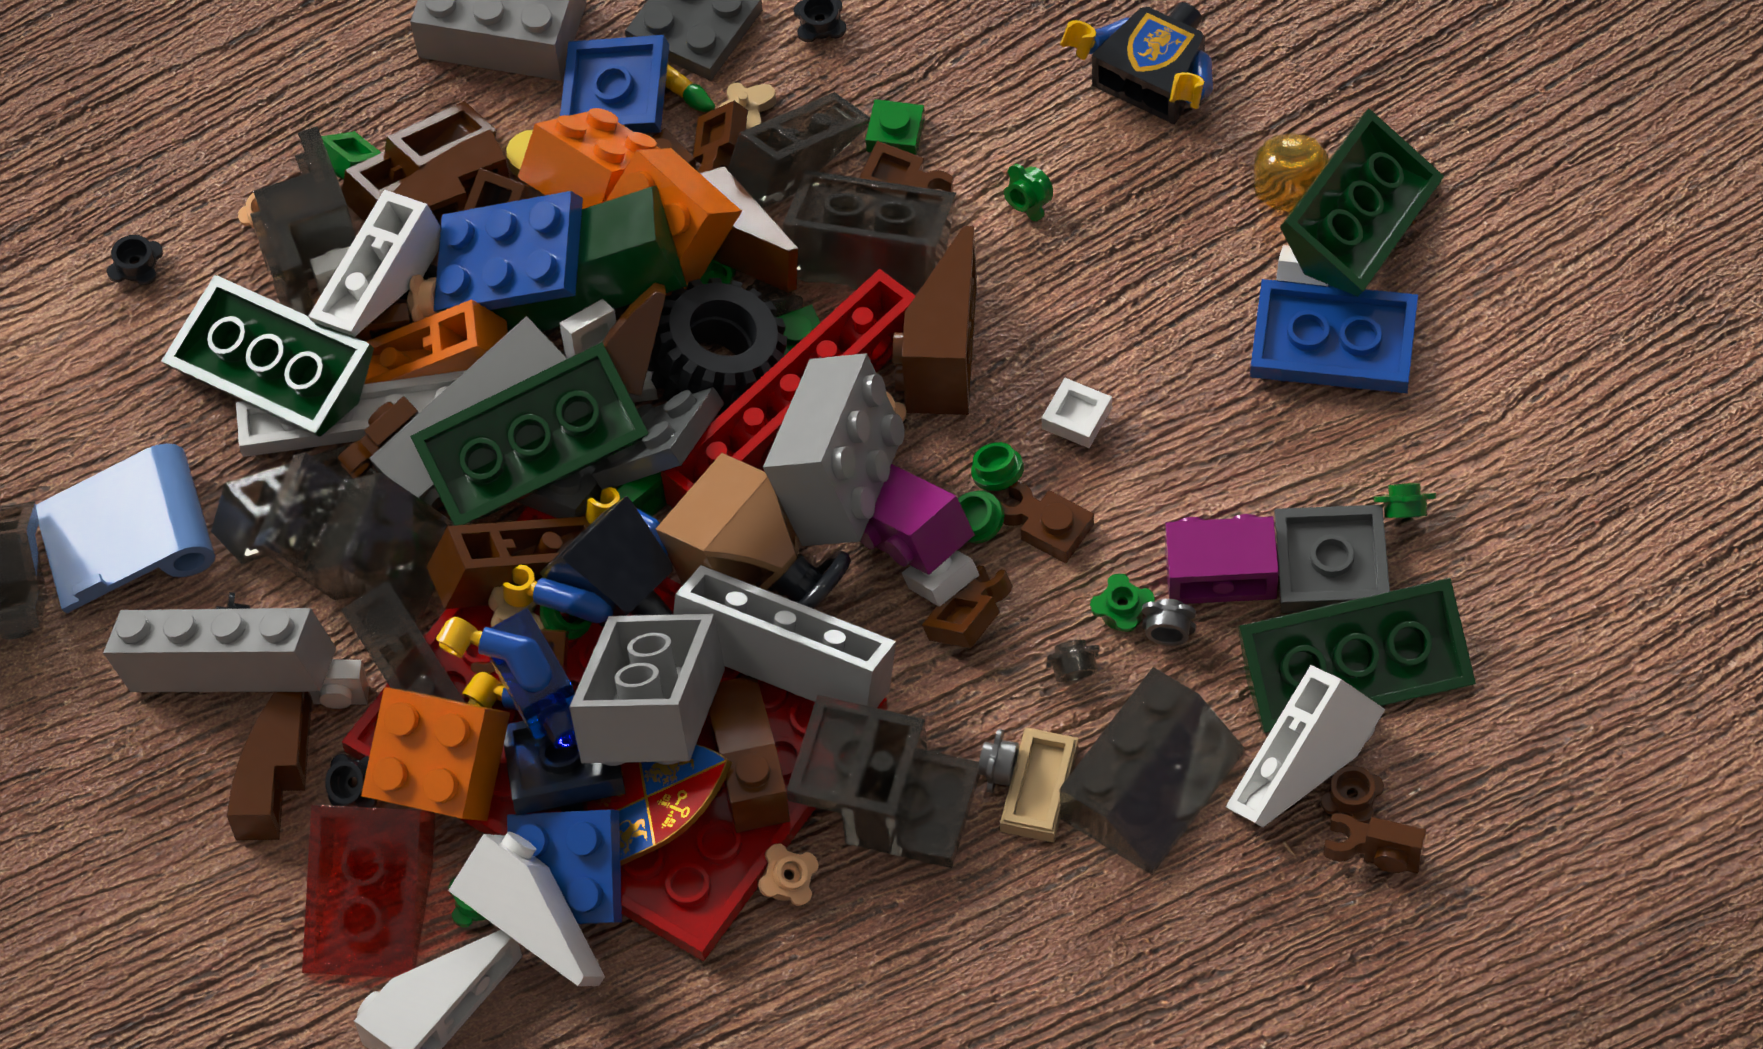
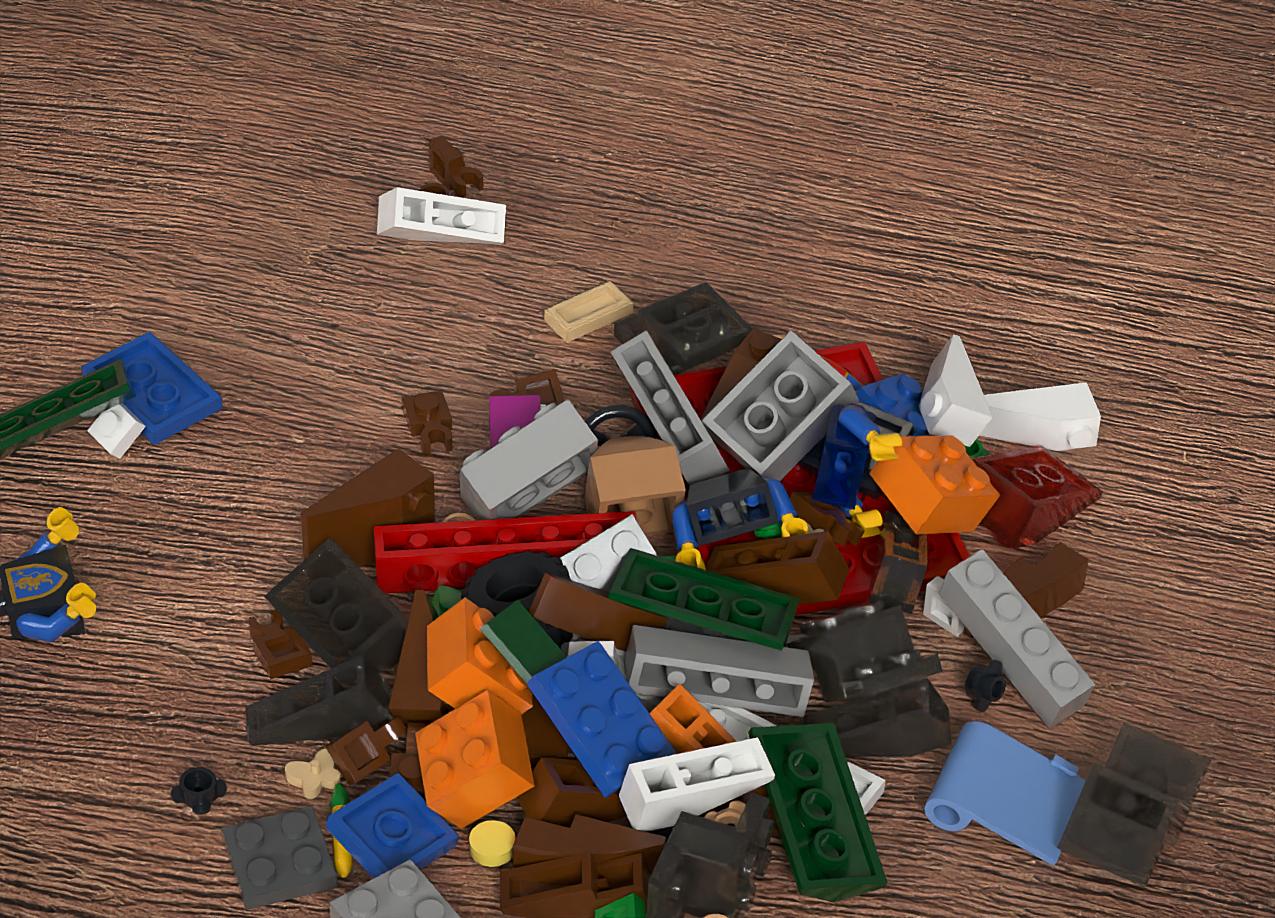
camera: 145 degrees left, 15 degrees down
(339, 782) = (991, 545): black plate -> none
(383, 426) = (783, 697): reddish brown plate -> none
(895, 125) = (238, 688): green plate -> none
(983, 513) = (467, 438): green plate -> none
(996, 467) = (428, 452): green plate -> none
(998, 761) = (600, 321): flat silver plate -> none
(1028, 190) = (214, 580): green plate -> none
(1073, 660) = (509, 332): clear smoke plate -> none
(1076, 412) = (344, 450): white plate -> none
(1121, 617) = (441, 352): green plate -> none
(1150, 772) = (529, 274): clear smoke slope -> none
(1168, 621) = (430, 320): flat silver plate -> none
(1221, 559) = (365, 327): magenta brick -> none
(1286, 169) = (46, 485): clear yellow hair -> none
(1329, 555) = (304, 293): dark grey plate -> none
(1380, 644) = (356, 246): dark green slope -> none
(1405, 501) = (238, 288): green plate -> none

